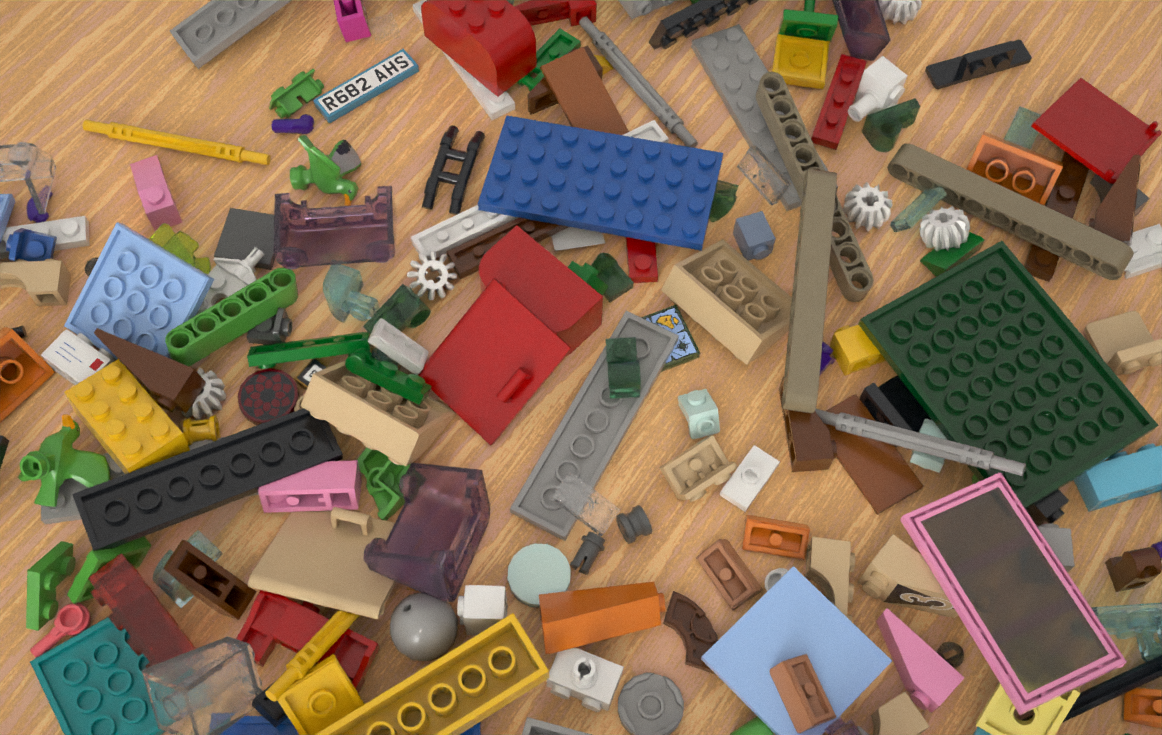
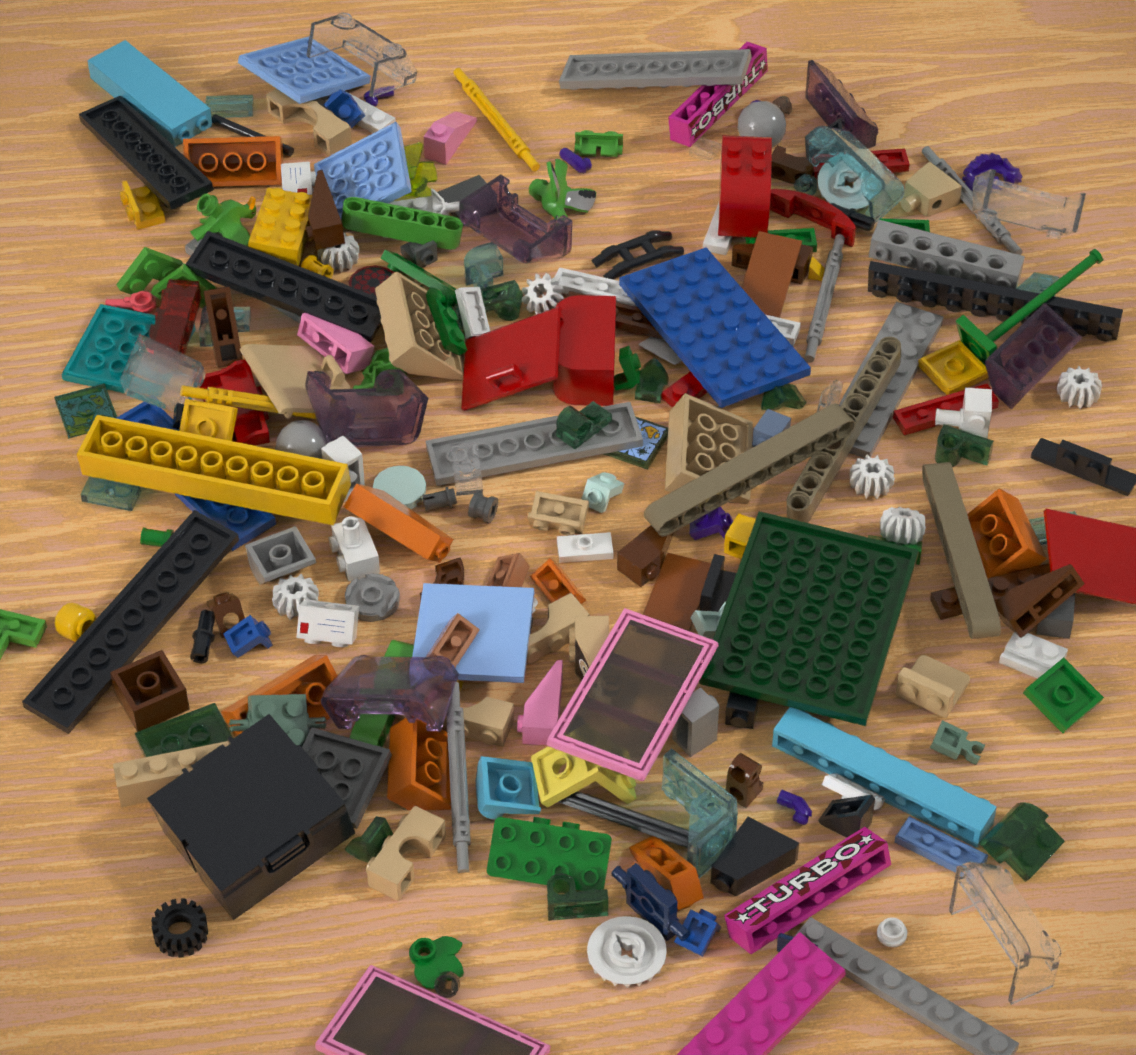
camera: 50 degrees right, 15 degrees down
(366, 85) = (649, 172): tile -> none
(917, 209) = (921, 504): clear light blue tile -> none
(920, 442) = (699, 598): light grey axle -> none

